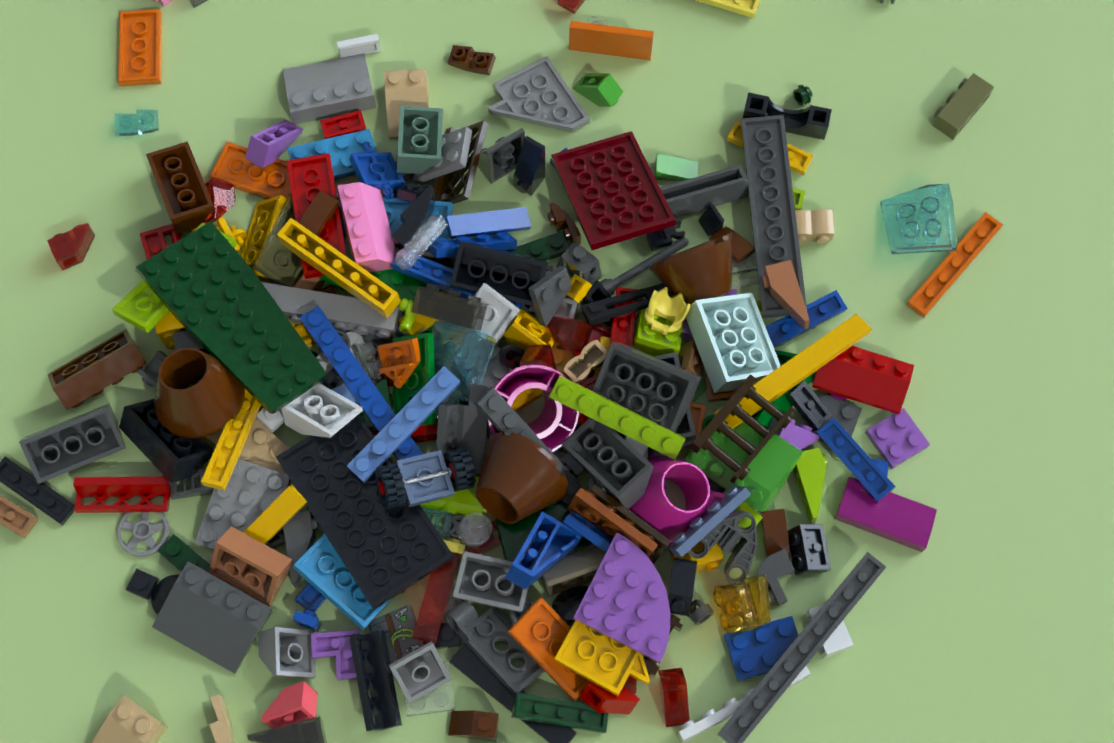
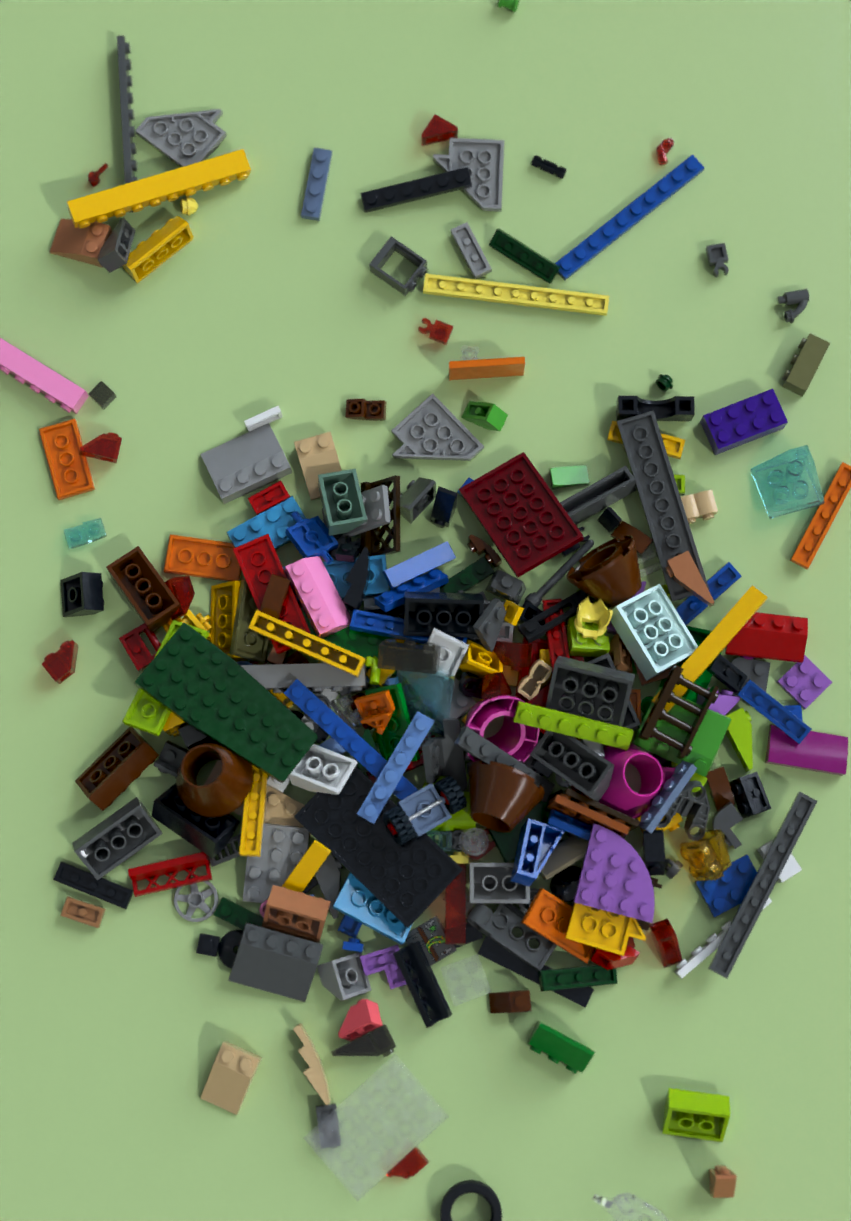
camera: 10 degrees left, 10 degrees up
(114, 181) = (82, 594): none -> black slope
(180, 40) = (104, 447): none -> clear red slope
(270, 143) = (212, 529): medium lavender slope -> none
(420, 241) = (369, 601): clear piece -> none
(420, 672) = (458, 971): light grey slope -> none
(882, 149) = (743, 421): none -> dark purple brick
(963, 38) = (794, 297): none -> dark grey plant

